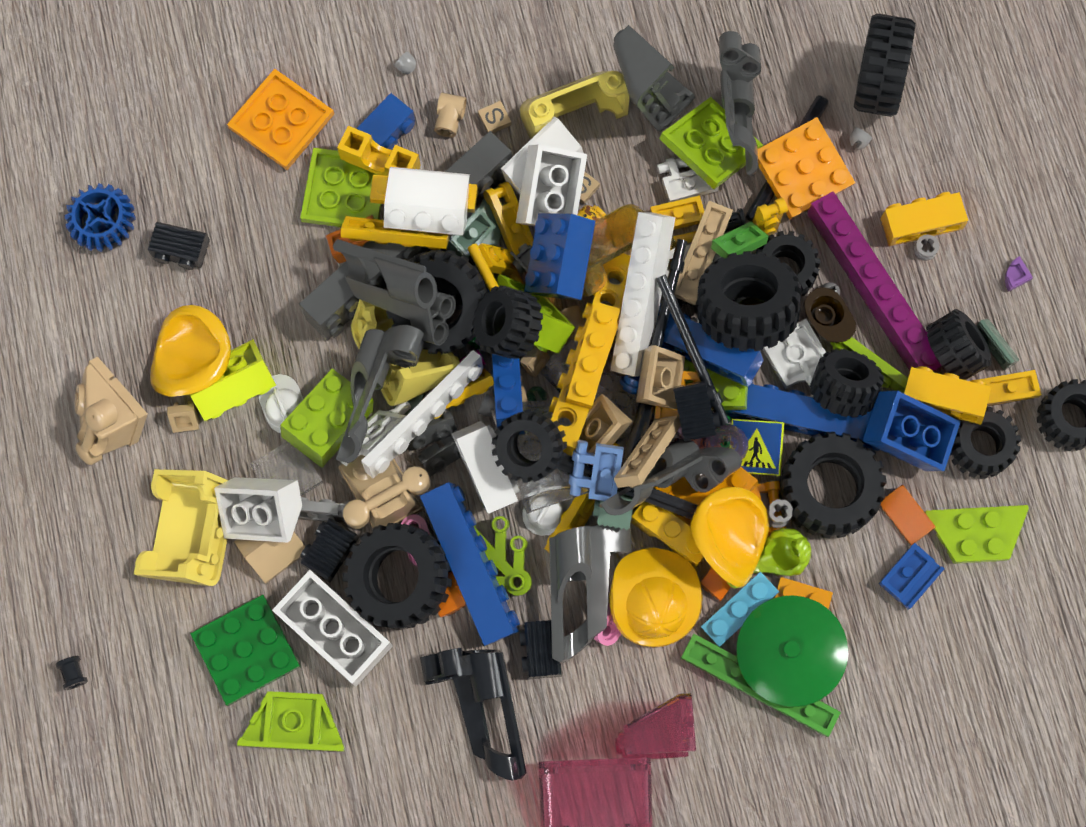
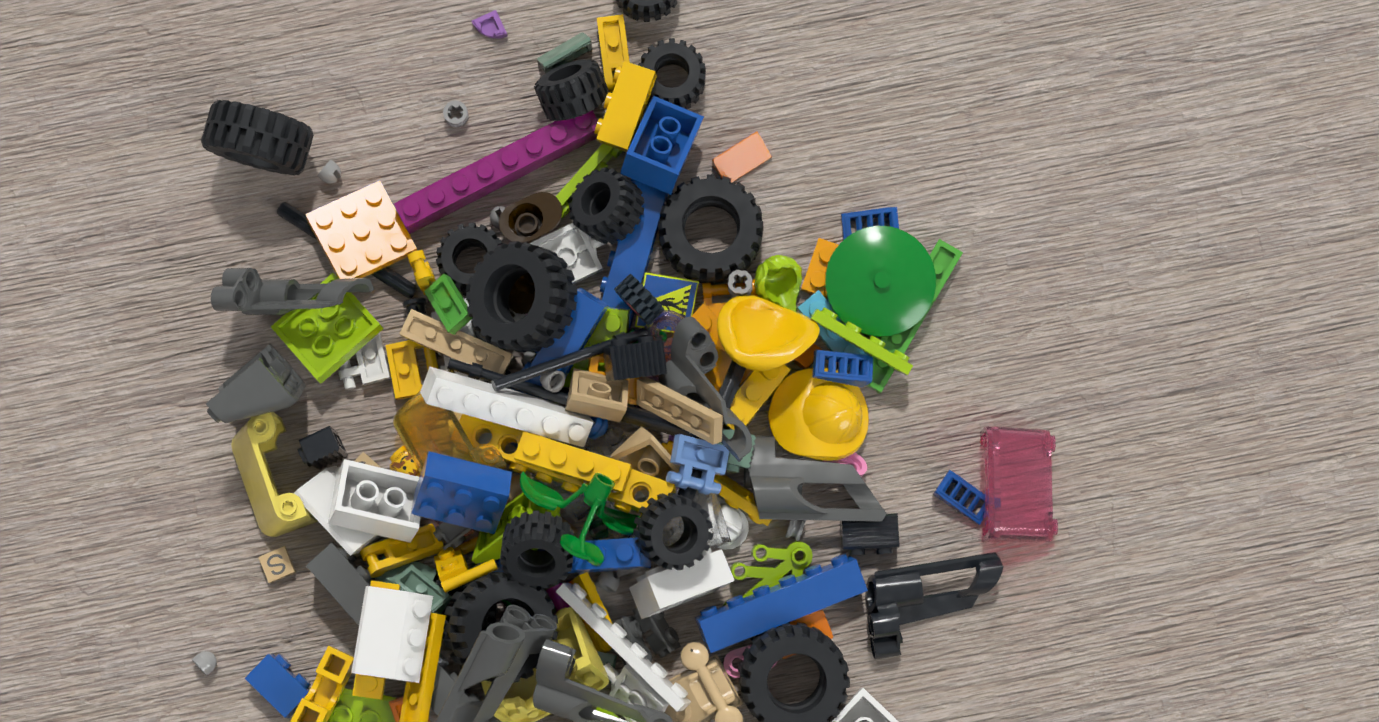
camera: 90 degrees left, 5 degrees up
(450, 110) = (267, 613): tan piece -> none
(542, 578) = (795, 529): none -> light grey bush
(562, 373) = (595, 496): none -> green plant
(594, 723) = (949, 499): none -> blue slope
(600, 144) = (322, 448): none -> black brick
(660, 732) = (963, 414): clear pink windscreen -> none
(670, 336) = (553, 381): none -> light grey hinge
(711, 625) = (860, 367): none -> blue slope
(736, 622) = (871, 346): none -> lime plate
(755, 414) = (639, 299): none -> black wheel
(864, 663) = (880, 213): none -> blue slope
(911, 576) = (804, 159): blue plate -> none
(924, 217) = (424, 113): yellow brick -> none
(979, 533) = (761, 89): lime wing -> none

